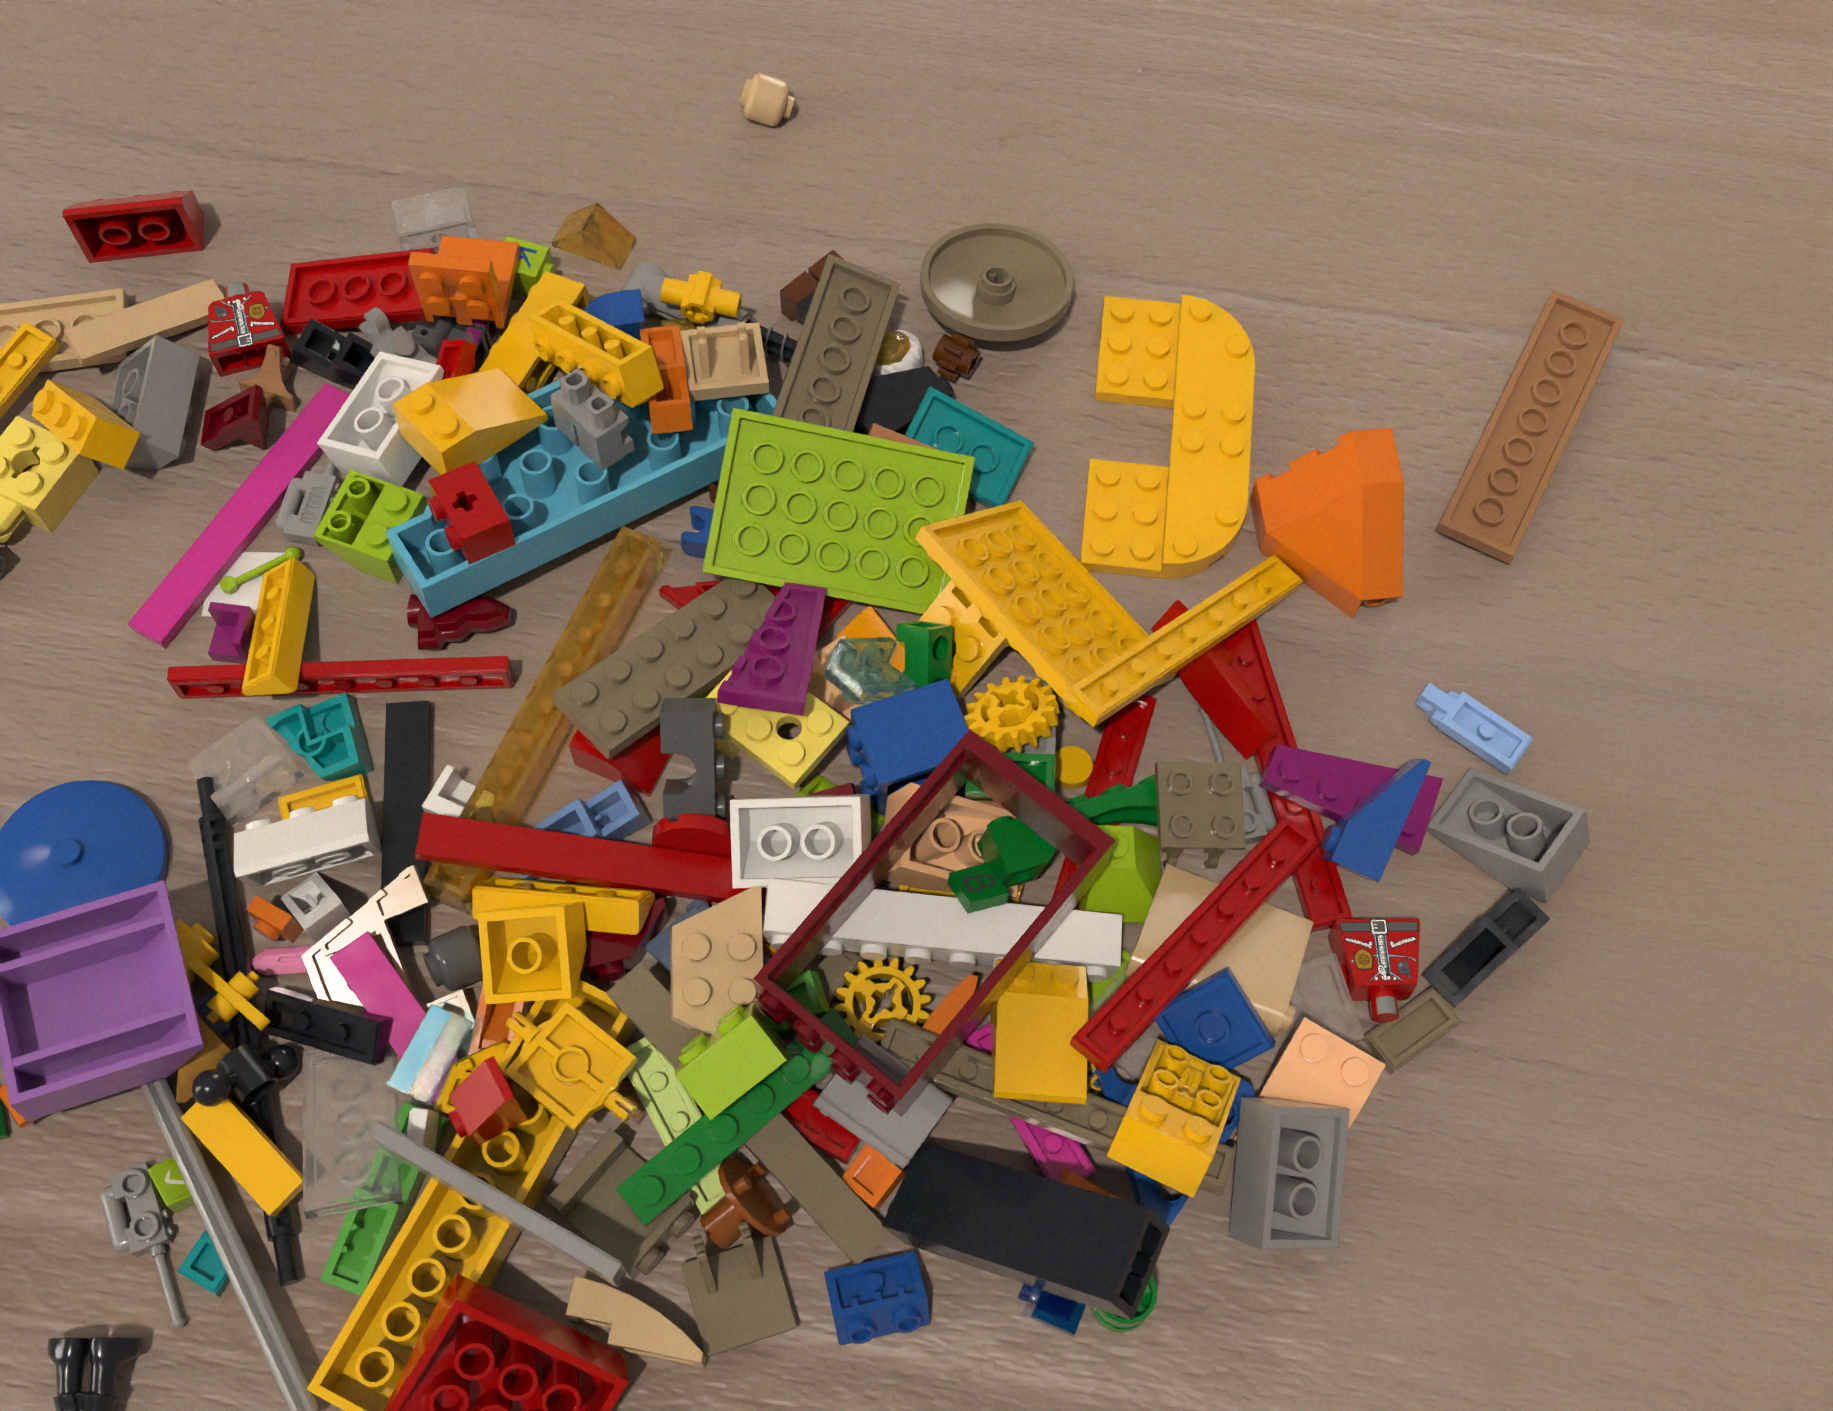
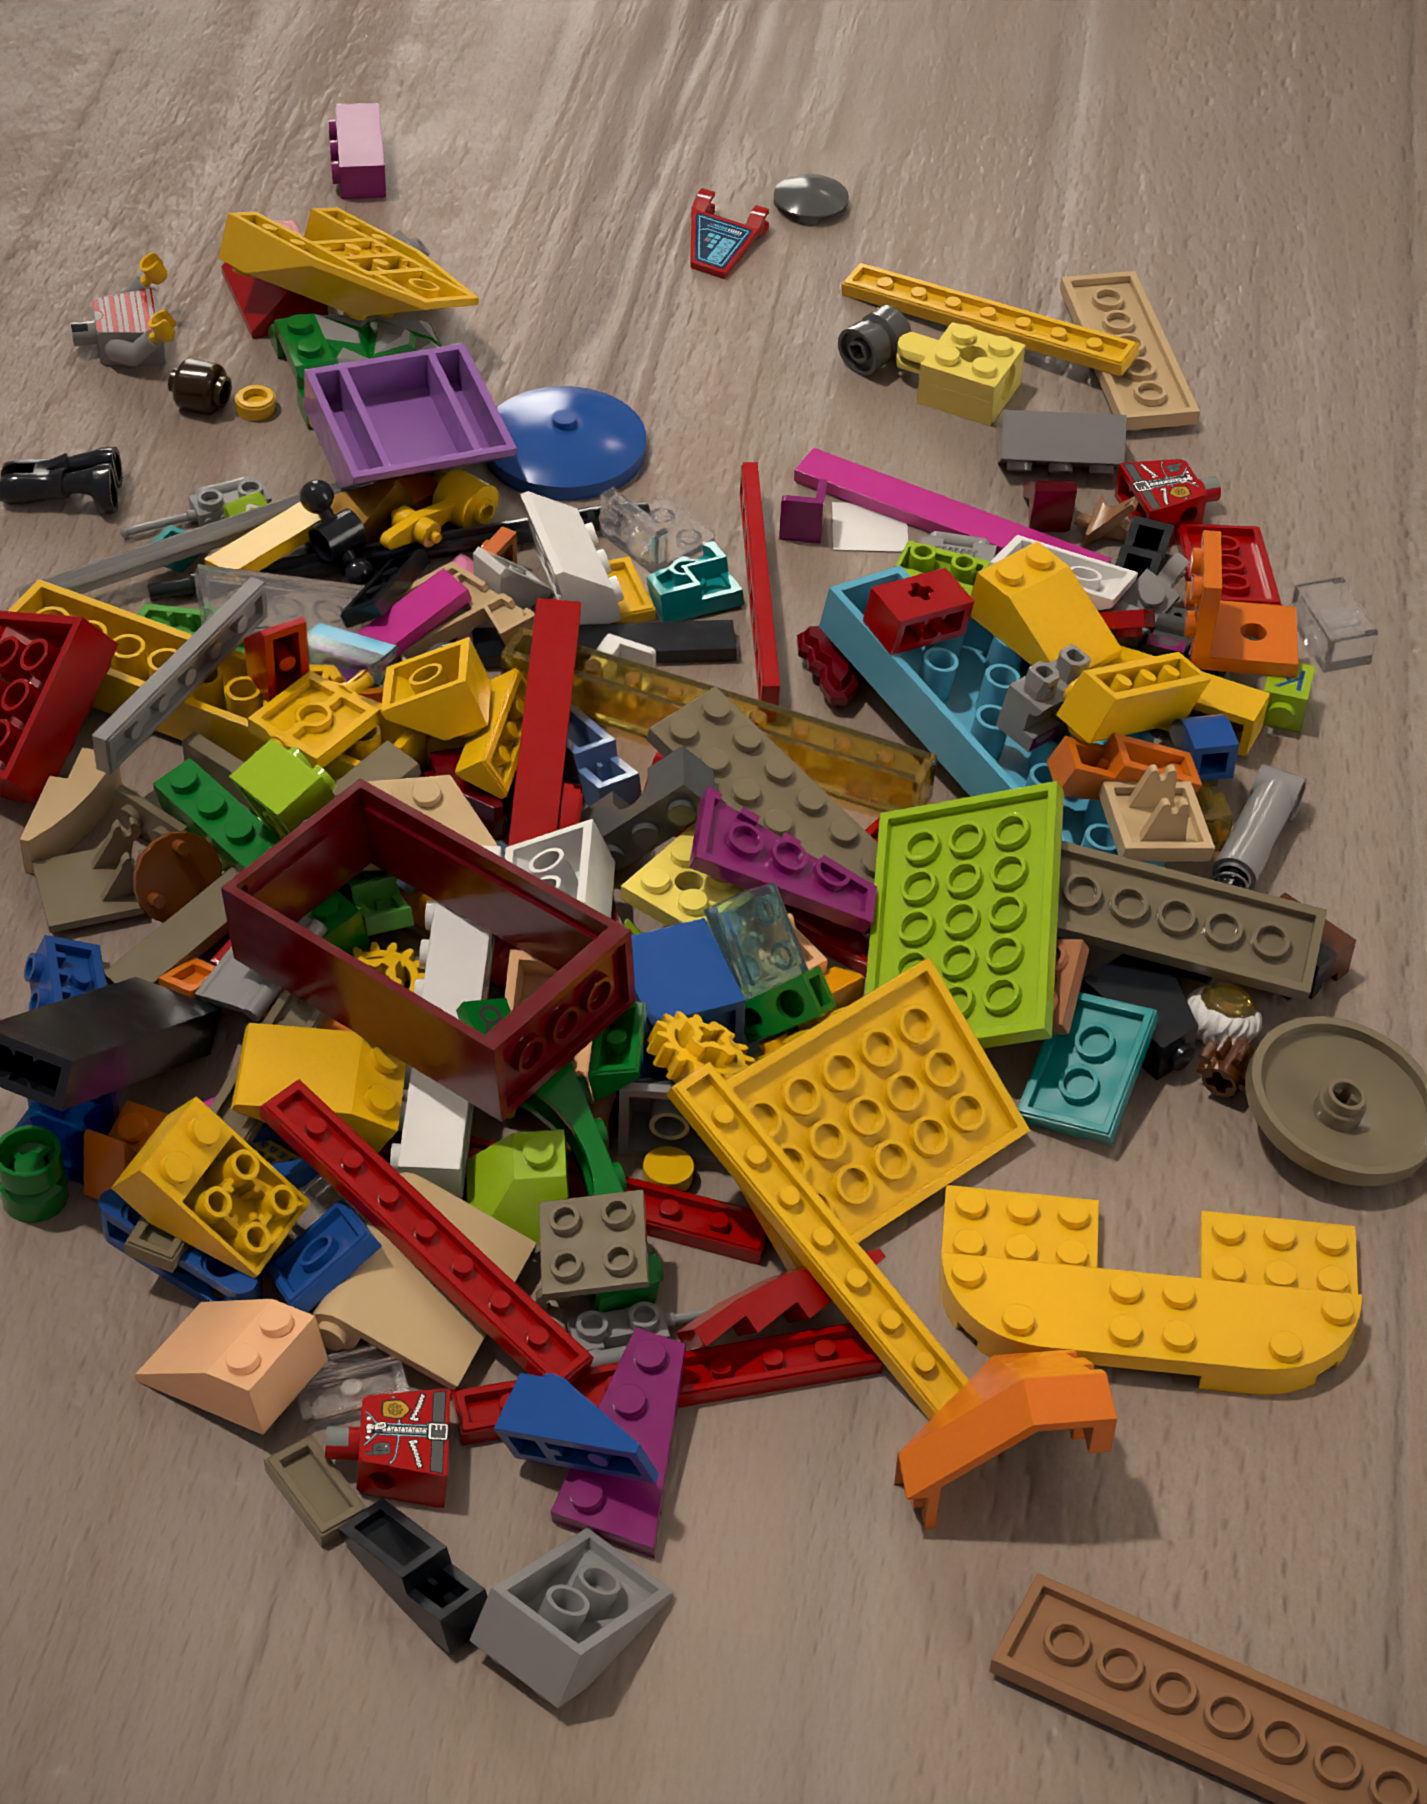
camera: 90 degrees right, 20 degrees down
(85, 424) = (1017, 380): yellow brick -> none
(137, 226) = (1280, 412): red slope -> none
(139, 323) = (1155, 421): tan tile -> none
(230, 585) = (866, 514): lime hinge -> none
(279, 630) = (805, 534): yellow slope -> none
(595, 236) = (1344, 758): clear yellow slope -> none
(701, 297) = (1251, 812): yellow axle -> none
(1289, 1174) = (139, 1311): light grey slope -> none
(1475, 727) = (726, 1594): light blue hinge -> none

